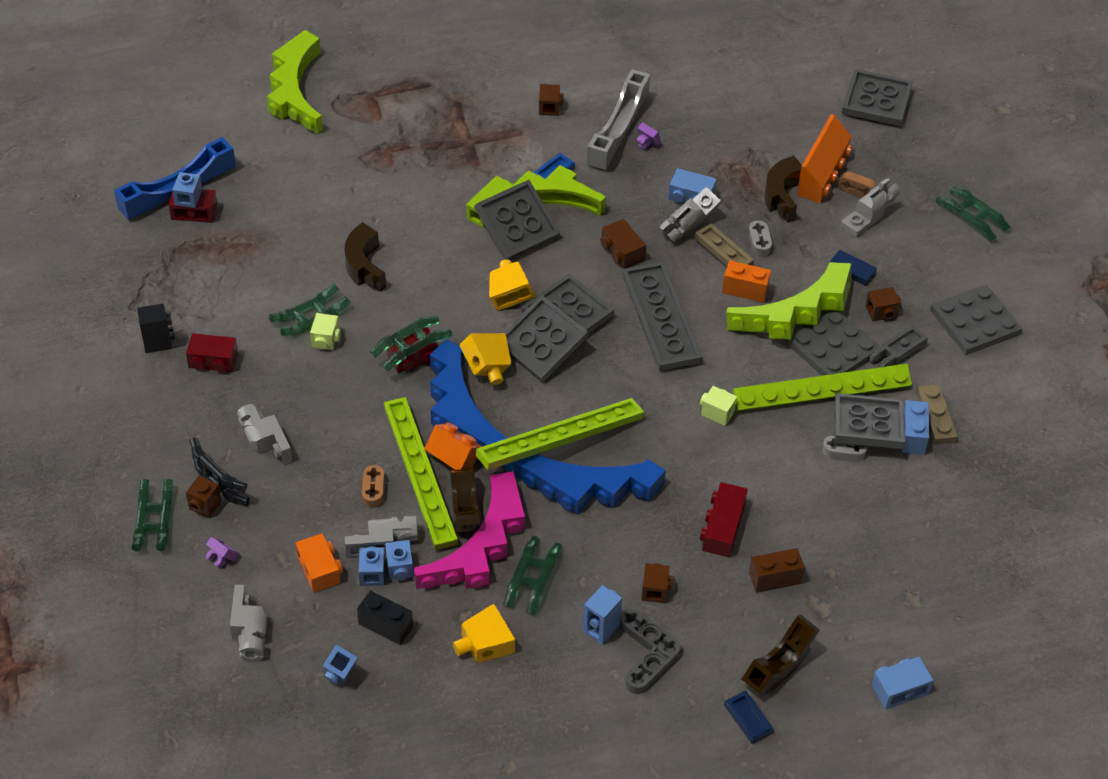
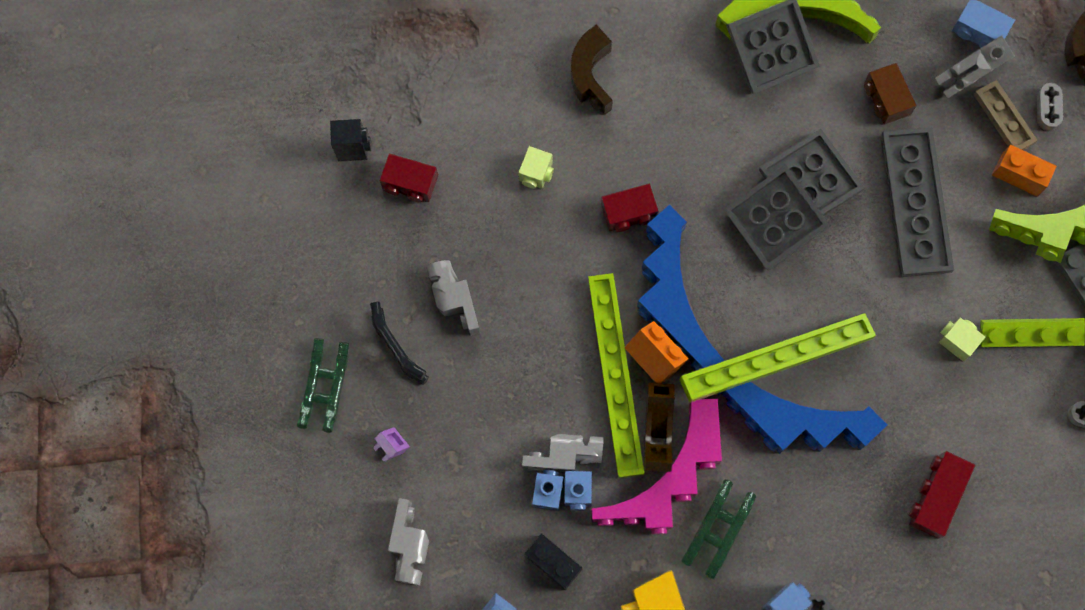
camera: 15 degrees right, 25 degrees up
(203, 496) = (378, 373): reddish brown brick -> none
(315, 302) = (527, 122): clear green piece -> none
(318, 562) = (491, 477): orange brick -> none
(377, 486) = (556, 382): medium nougat beam -> none
(405, 349) = (621, 216): clear green piece -> none
(487, 355) = (712, 234): yellow torso -> none
(509, 285) = (750, 135): yellow torso -> none
(656, 582) = (852, 564): reddish brown brick -> none
(776, 570) = (988, 573): reddish brown brick -> none

